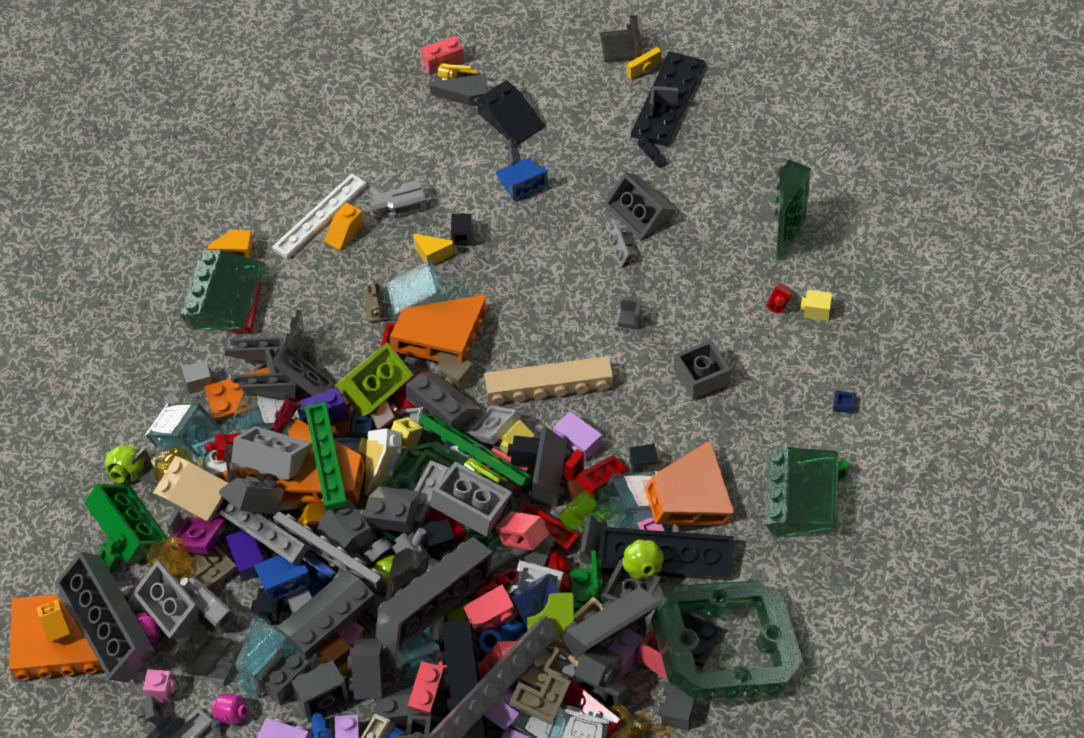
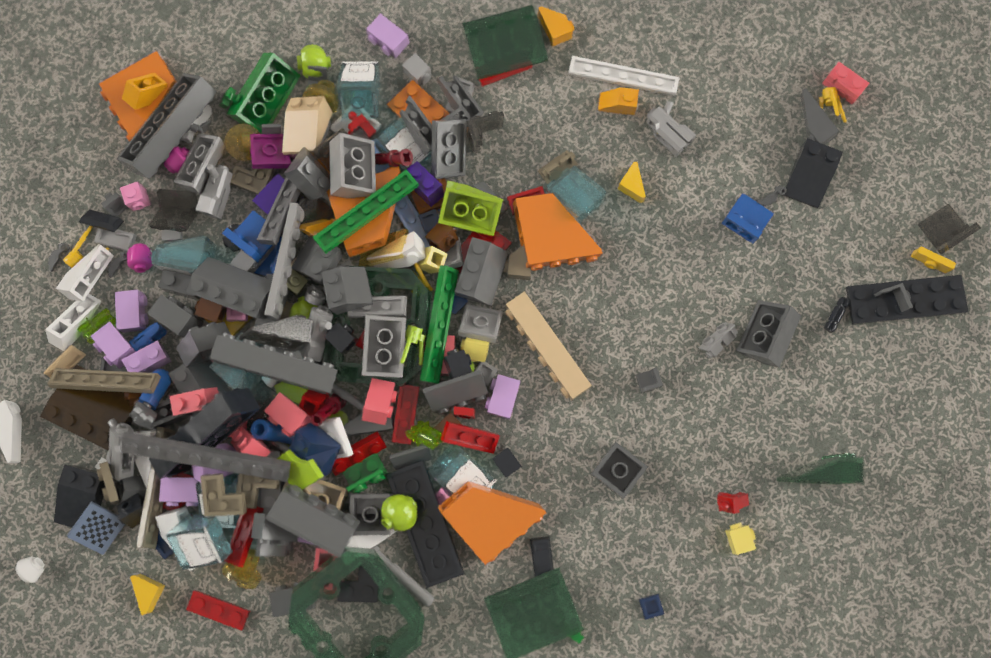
camera: 65 degrees right, 25 degrees up
(143, 388) = (387, 36): none -> lavender brick
(461, 229) = (665, 196): black brick -> none
(749, 471) = (541, 555): none -> black tile

